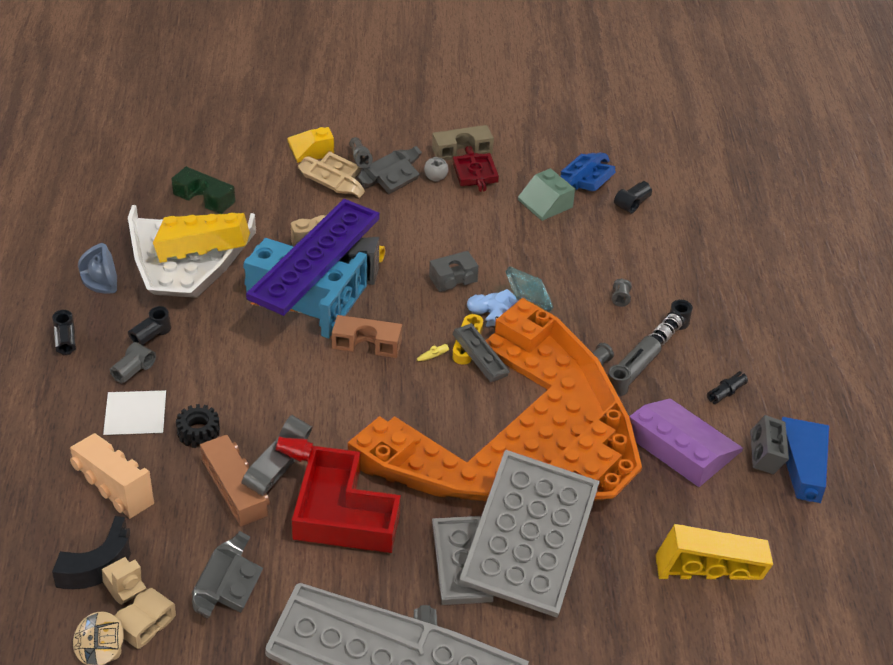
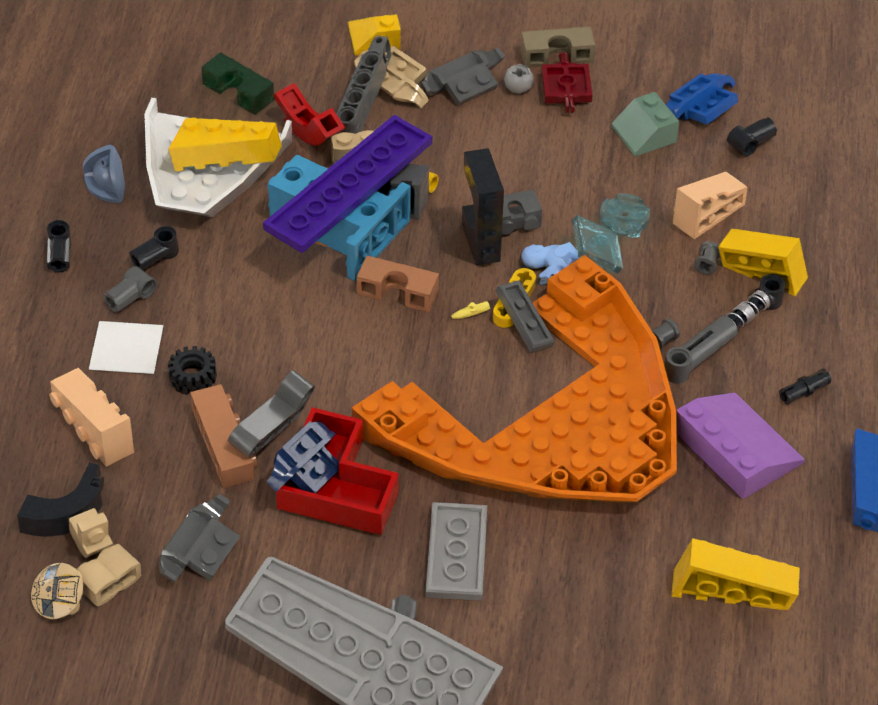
camera: 10 degrees right, 5 degrees up
(267, 216) = (306, 122): none -> red arch
(295, 448) = (291, 408): red cone -> none
(311, 182) = (364, 85): none -> dark grey piece
(314, 492) = (305, 459): none -> plate
(360, 151) = (429, 51): dark grey pin -> none
(432, 280) = (484, 217): none -> black arch
(529, 533) = (533, 529): light grey plate -> none
(551, 273) = (630, 225): none -> clear light blue plate
(611, 250) = (707, 203): none -> light nougat wedge
(668, 284) = (765, 254): none -> yellow wedge
(769, 444) = (832, 459): dark grey brick -> none

